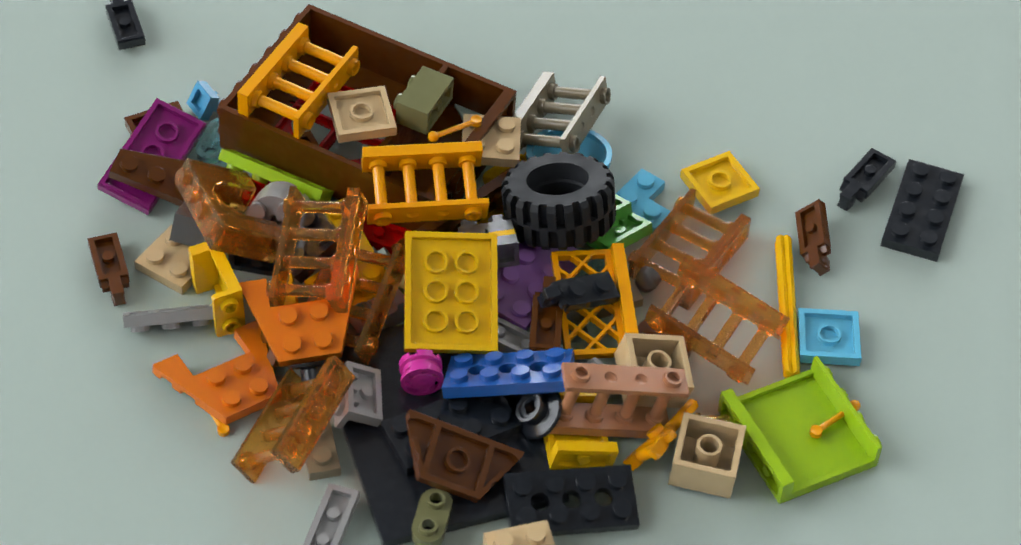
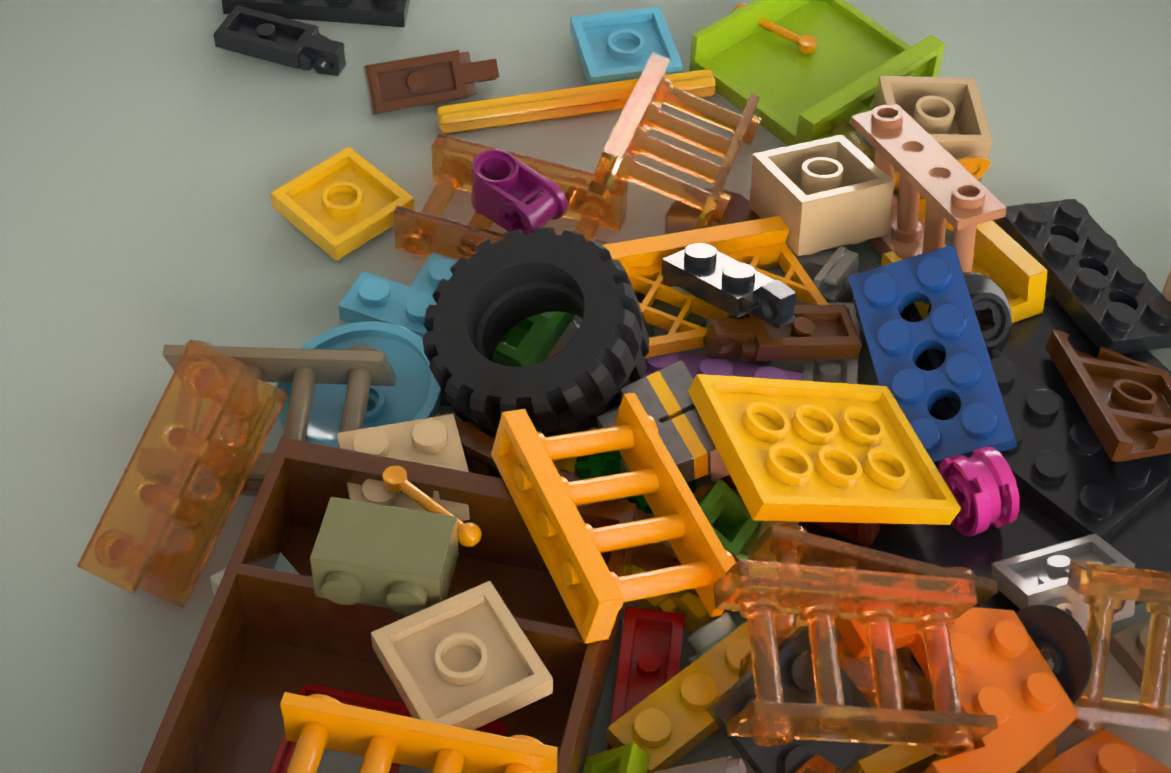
camera: 105 degrees left, 0 degrees up
(529, 88) = (183, 476): none -> clear orange fence
(686, 233) = (511, 193): none -> magenta piece

